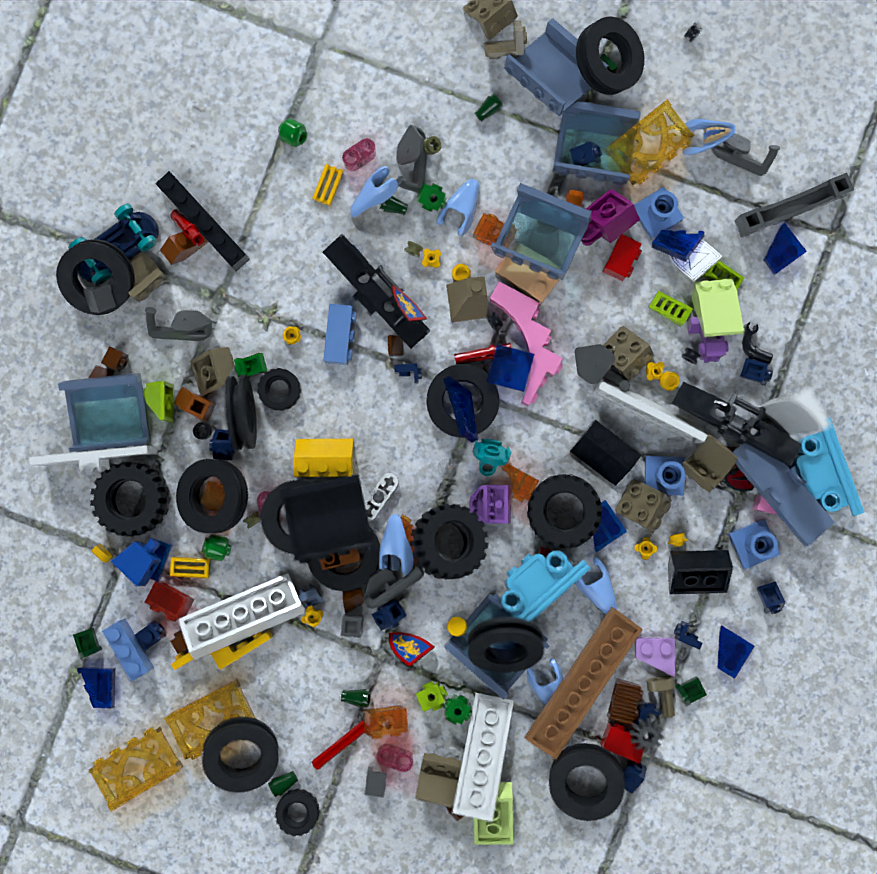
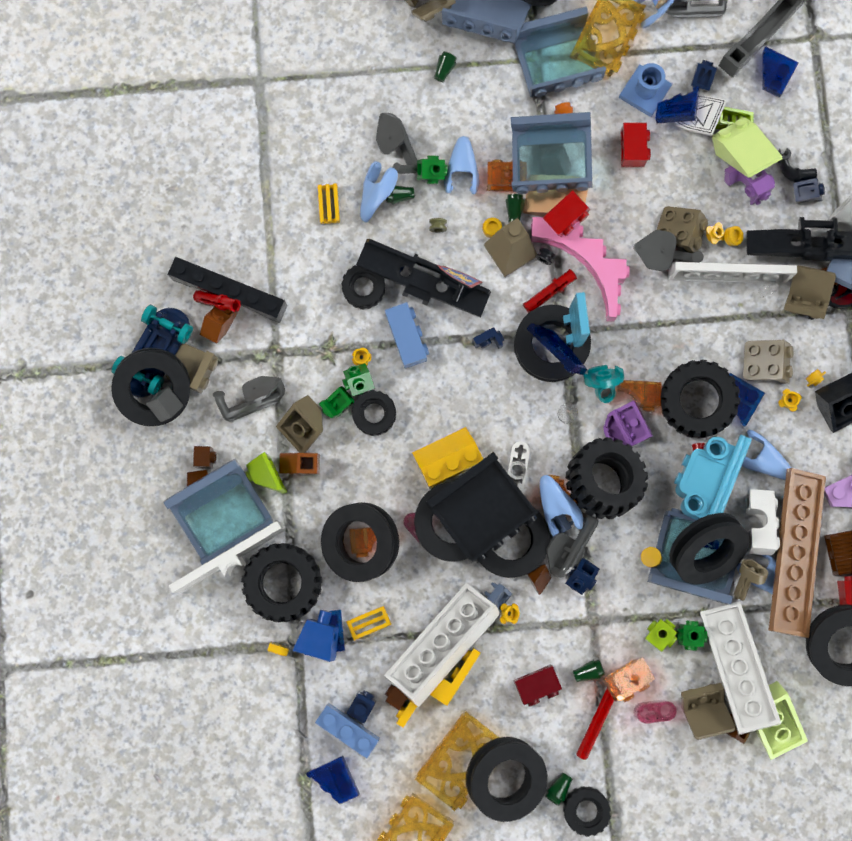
camera: 25 degrees left, 5 degrees down
(87, 643) = (303, 744): dark green tile -> none
(169, 601) = (365, 663): clear red brick -> none
(204, 436) = (314, 482): black bush -> none
(216, 547) = (386, 590): green head -> none
(221, 445) = (347, 488): dark blue brick -> none
(240, 412) = (352, 447): black tyre -> none
(252, 520) = (407, 548): olive bush -> none
(278, 354) = (358, 380): none -> green brick
(292, 132) = (273, 170): green head -> none
(306, 688) = (538, 685): none -> dark red brick
(308, 276) = (362, 301): none -> black tyre
(337, 561) = (511, 544): dark orange slope -> none
(351, 625) = (552, 603): dark grey panel -> none
(353, 152) = (341, 162): clear pink beam -> none
(375, 783) = (648, 744): dark grey panel -> none
(395, 346) = (463, 322): reddish brown slope -> none
(408, 647) = (616, 598): shield -> none
(428, 149) = (410, 123): olive bush -> none
(431, 263) = (463, 229): yellow plate -> none
(488, 265) = (514, 206): none -> dark green cone
(489, 390) = (579, 321): none -> medium azure tile
(510, 367) = (584, 281): clear blue slope -> none
(528, 293) = (567, 214): none -> red brick
(533, 682) = (750, 572): none -> dark tan piece
(575, 628) = (763, 506): none -> white arch
(586, 154) = (554, 67): dark blue bracket -> none
(605, 452) = (708, 328): black slope -> none
(610, 218) = (608, 112): magenta brick -> none
(655, 474) = (774, 322): medium blue plant -> none
(673, 302) = (708, 177): lime slope -> none
(691, 355) = (741, 204): black bush -> none
(716, 223) = (704, 75): none -> dark blue bracket

